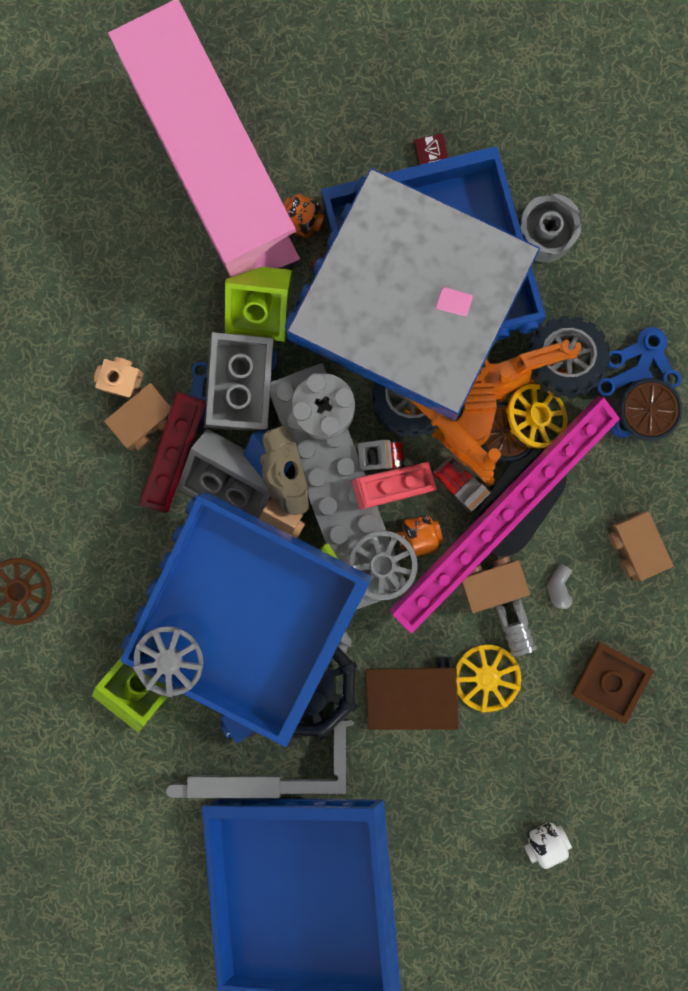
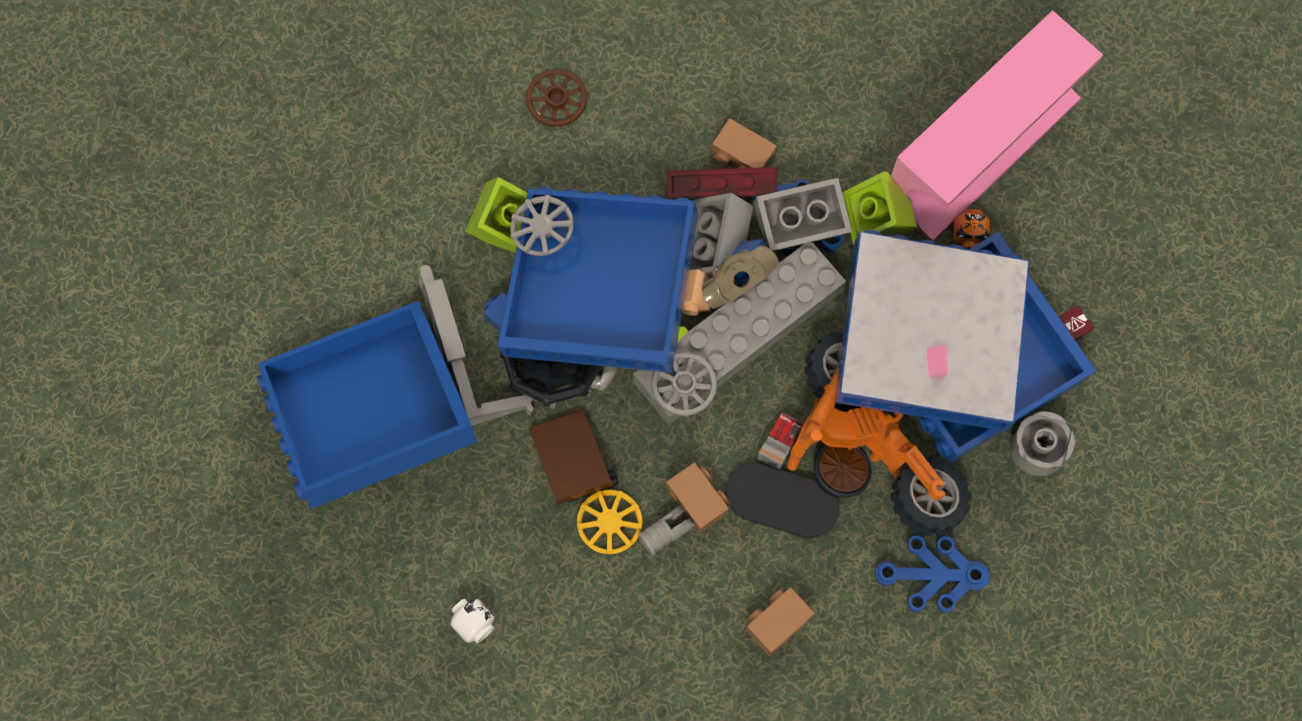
camera: 70 degrees right, 15 degrees down
(118, 378) = (771, 120): light nougat brick -> none
(318, 389) = (810, 272): light grey brick -> none
(383, 455) = (782, 363): light grey leg -> none
(393, 485) = (758, 378): coral tile -> none
(422, 535) = (721, 419): orange head -> none
(504, 514) = (768, 483): dark pink plate -> none
(536, 416) = (866, 489): yellow wheel -> none
(557, 589) = (713, 559): light grey arm -> none
(612, 682) = (642, 636): reddish brown plate -> none
(650, 409) = (910, 589): reddish brown wheel -> none

